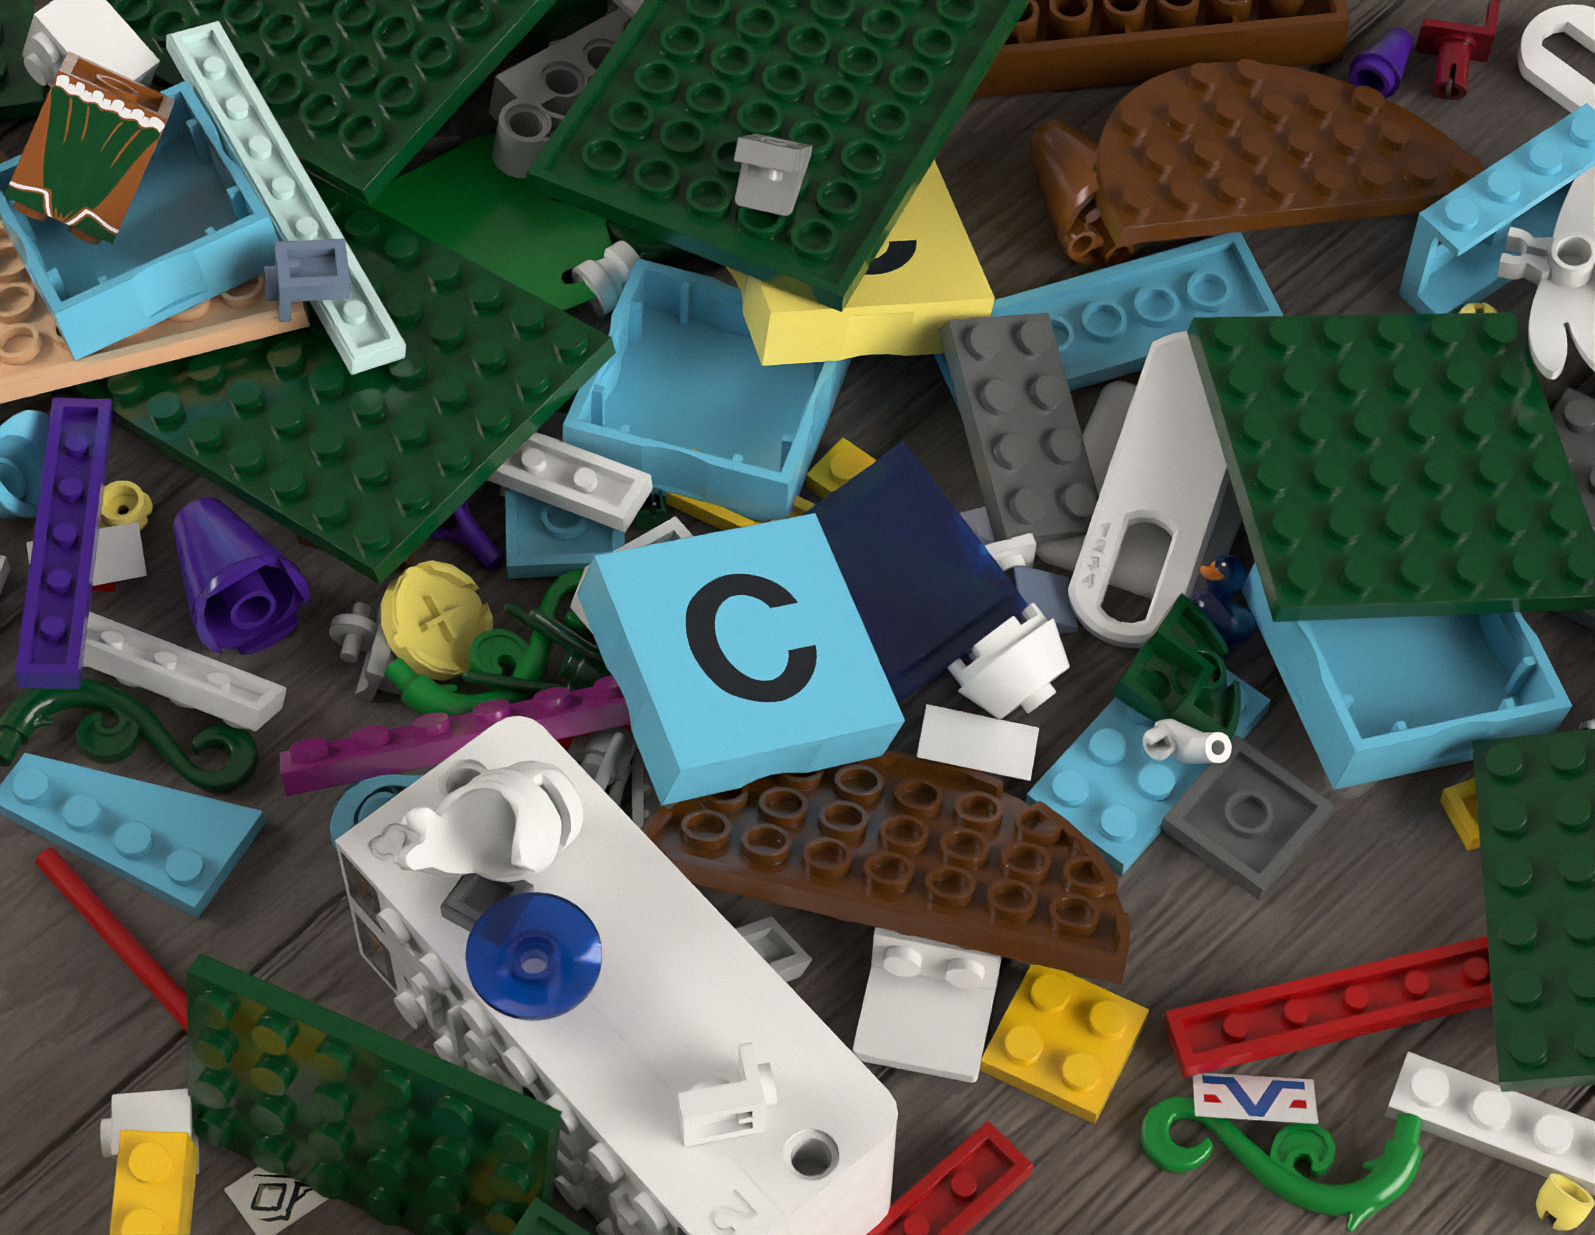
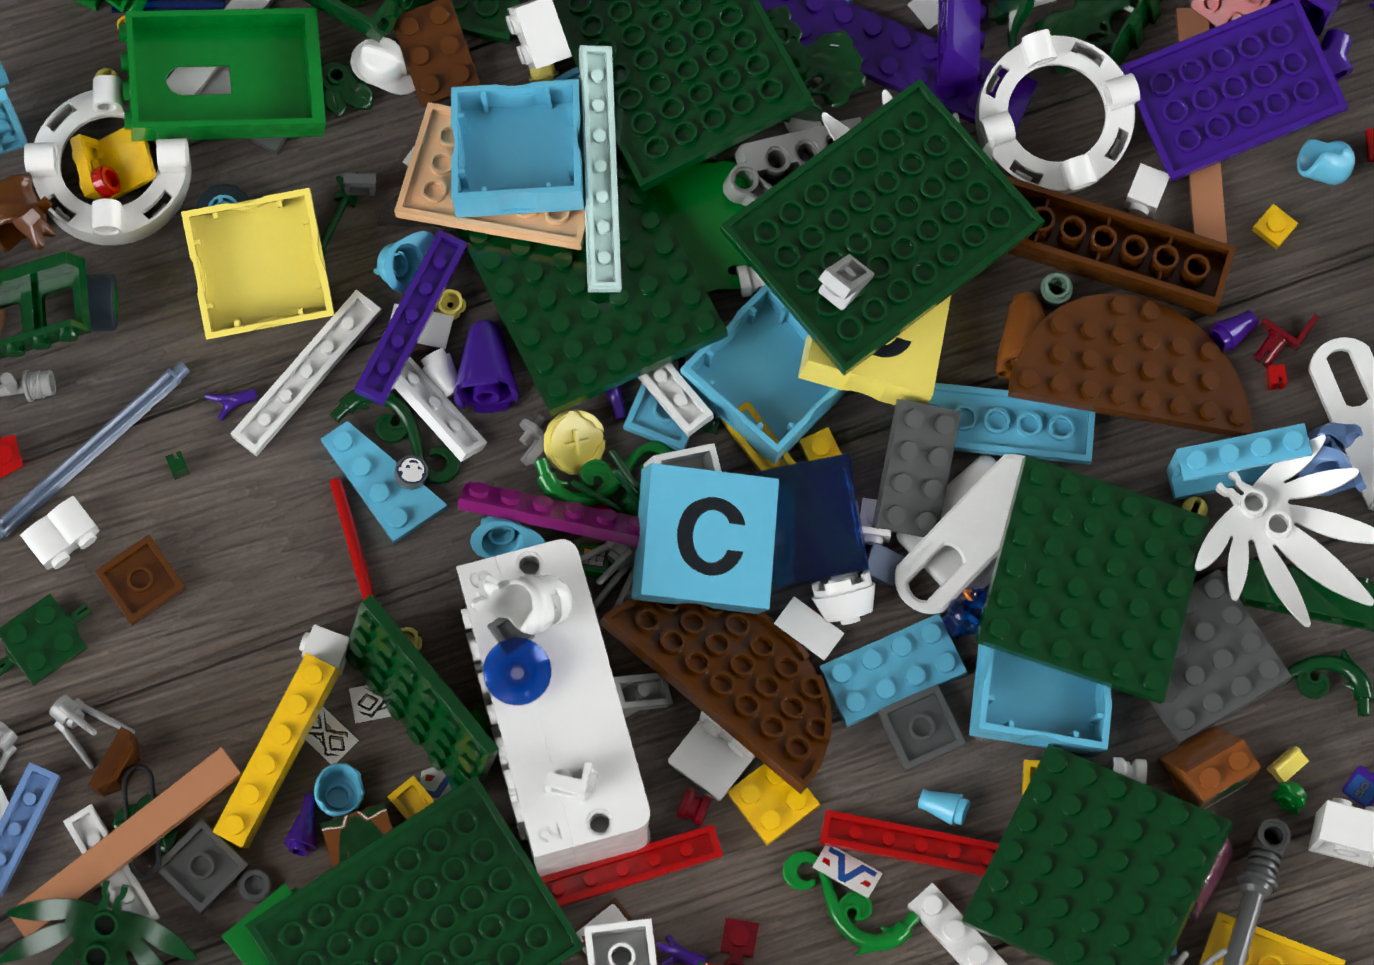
camera: 25 degrees right, 15 degrees up
(89, 149) = (511, 104): slope -> none
(155, 610) = (441, 371): none -> white cone
(175, 783) = (411, 472): none -> tile
(307, 273) = (587, 229): sand blue bracket -> none
(938, 1107) = (694, 806): none -> dark red wheel
(1091, 101) = (1056, 290): none -> sand green cone
(1182, 673) = (925, 643): dark green brick -> none
(1185, 743) = (907, 678): white arm -> none
(1357, 920) = (946, 806): none -> medium azure cone
(1482, 98) = (1276, 375): none -> red piece

